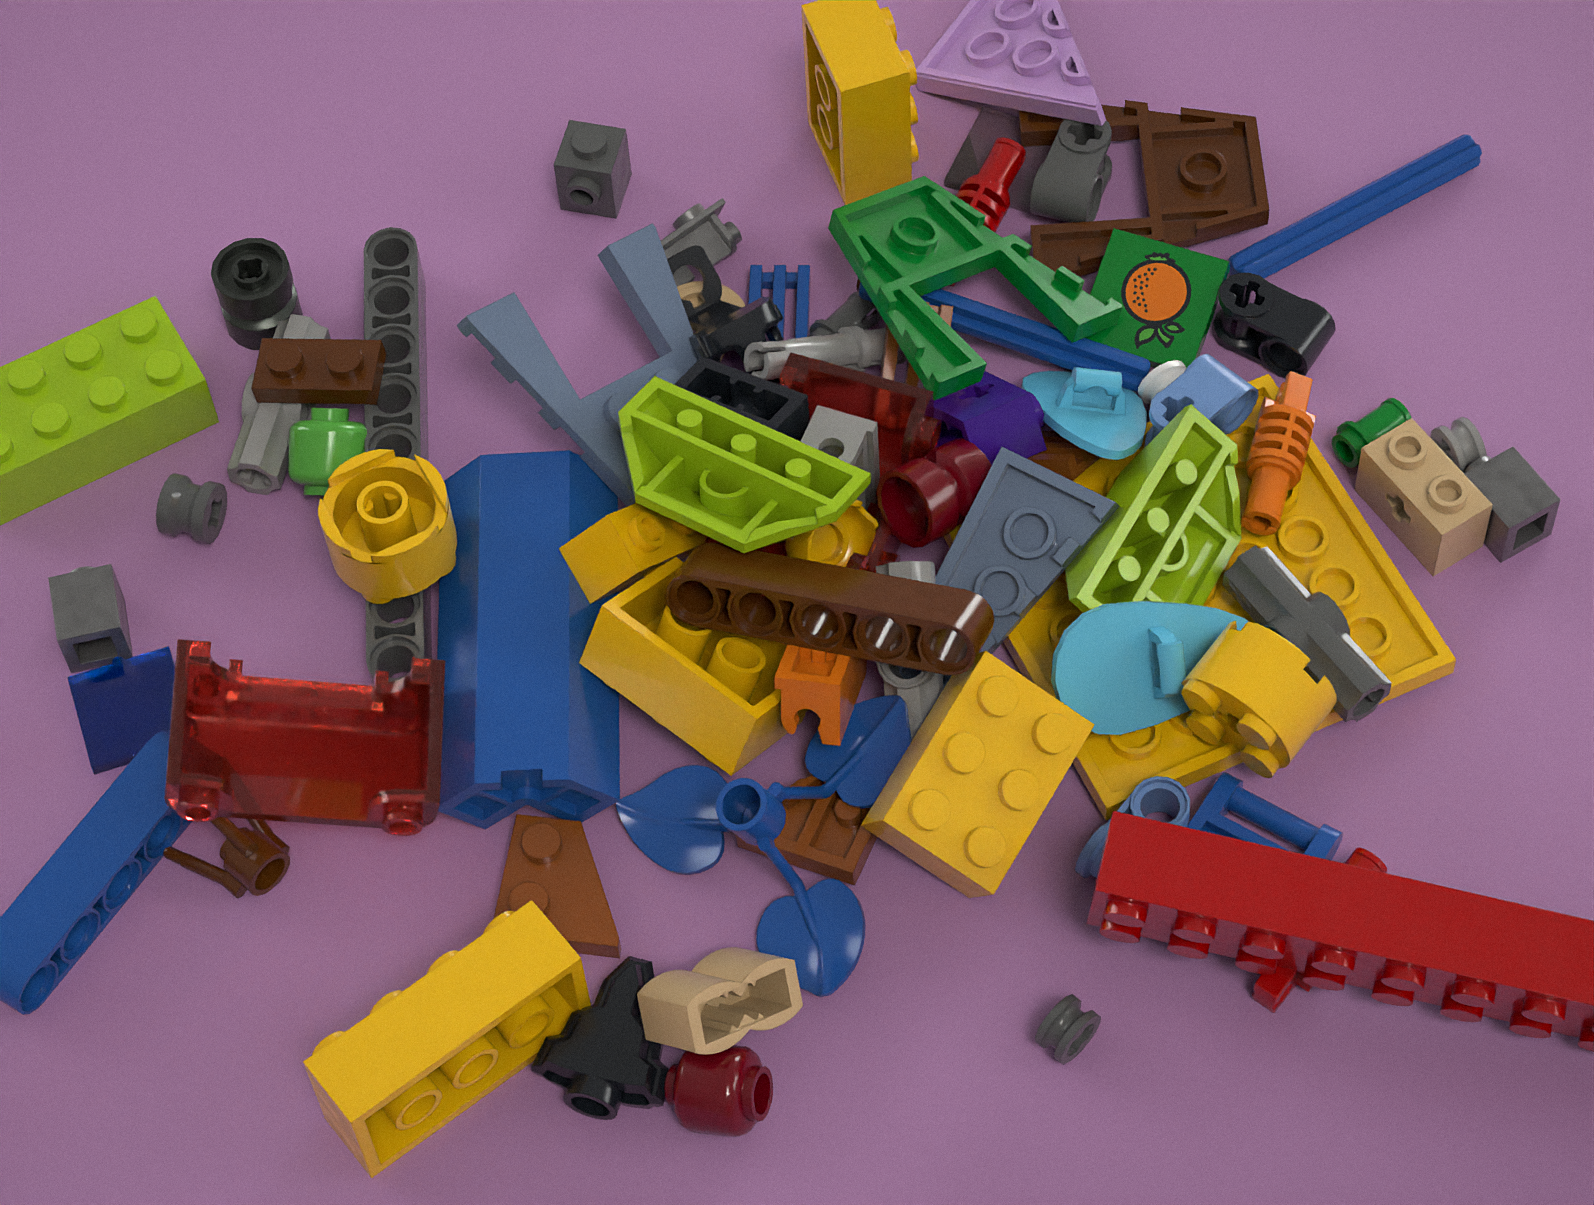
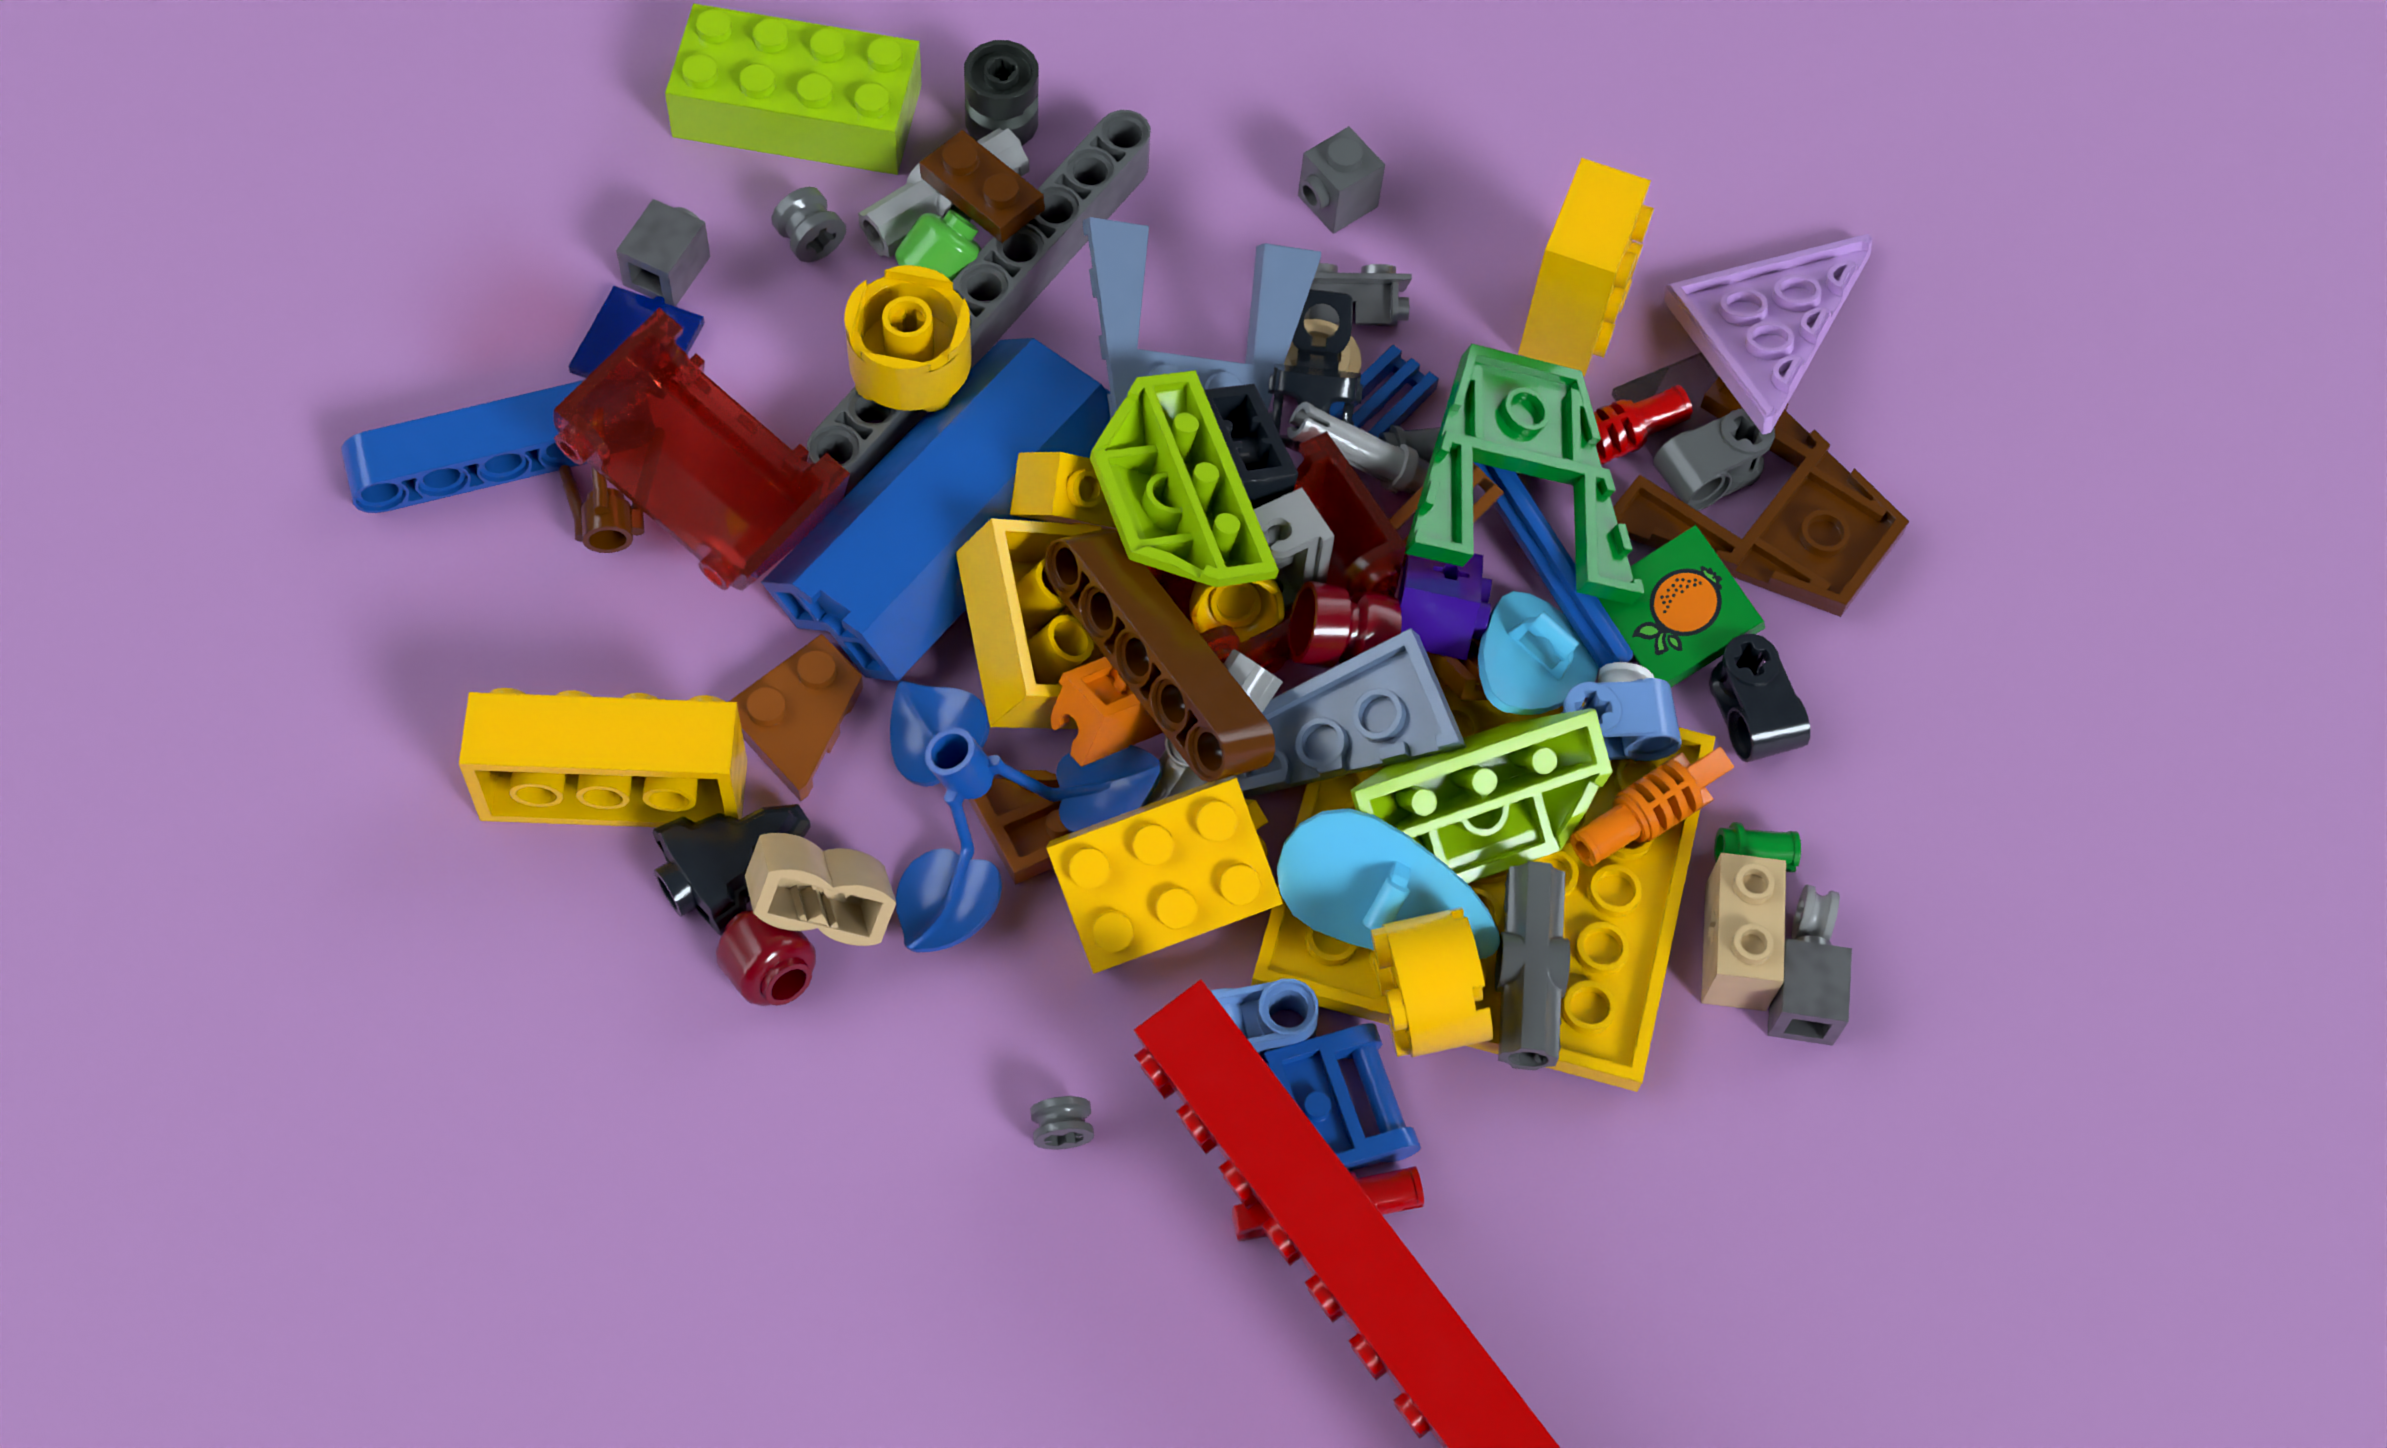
camera: 30 degrees right, 5 degrees up
(1358, 208) = (1925, 659): blue axle -> none

